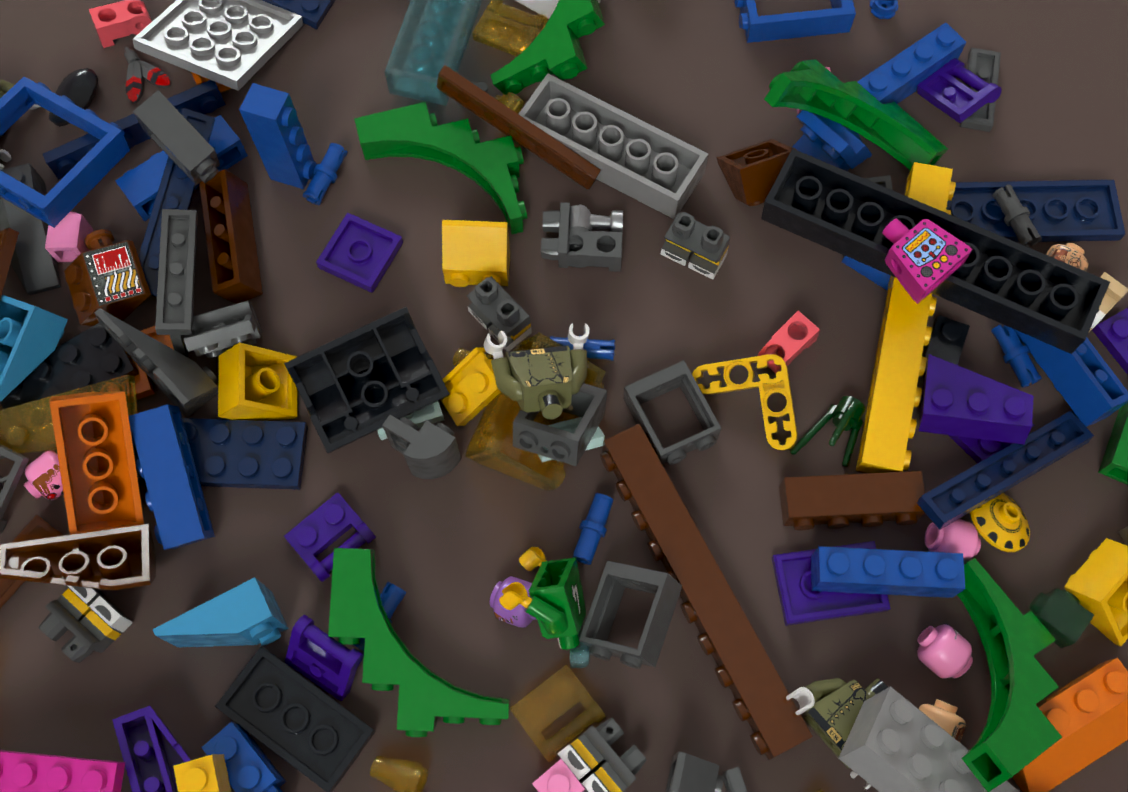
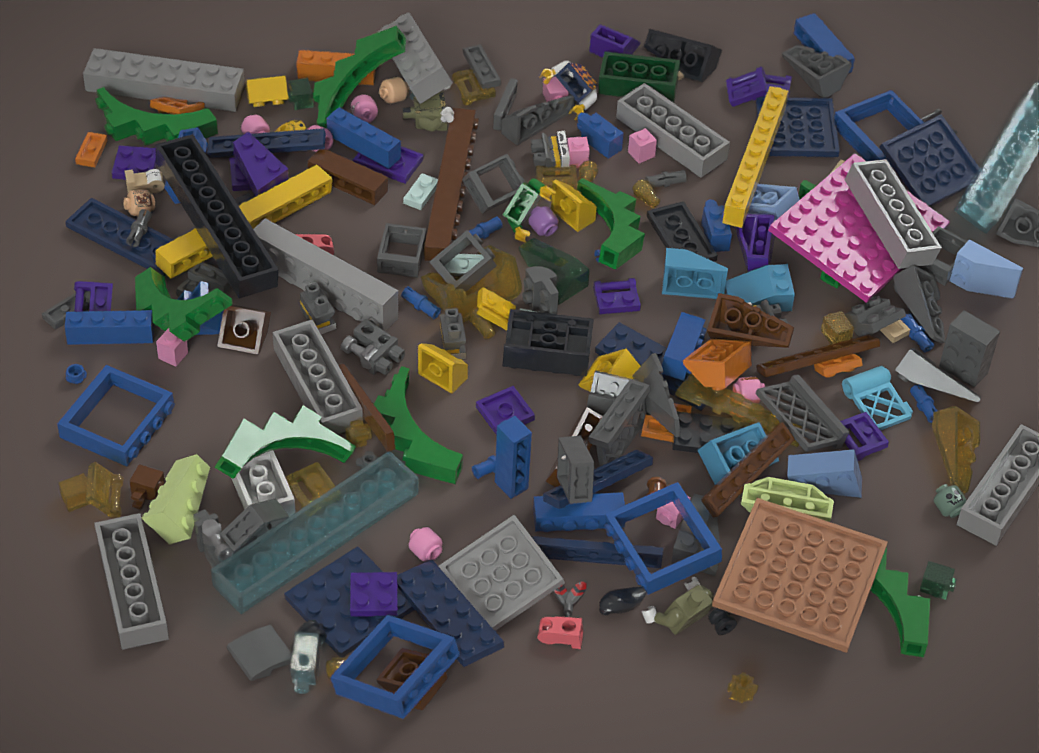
camera: 150 degrees left, 20 degrees down
(107, 280) = (663, 457): slope -> none
(115, 680) = (765, 283): none -> dark azure slope
(322, 658) = (654, 245): dark purple plate -> none
(332, 28) = (425, 544): none -> bright pink head
(443, 521) = (570, 272): none -> clear green wedge
(488, 658) = (572, 206): none -> yellow slope
(516, 753) = (588, 171): none -> clear yellow cone
(542, 376) = (459, 268): olive torso -> none
(730, 287) = (341, 283): none -> light grey brick
(735, 550) = (421, 191): none -> light aqua plate
(766, 386) = (343, 235): yellow beam -> none
(845, 417) = (315, 205): dark green plant -> none
(923, 256) = (233, 193): dark pink torso -> none
(1051, 495) = (254, 124): none -> bright pink head

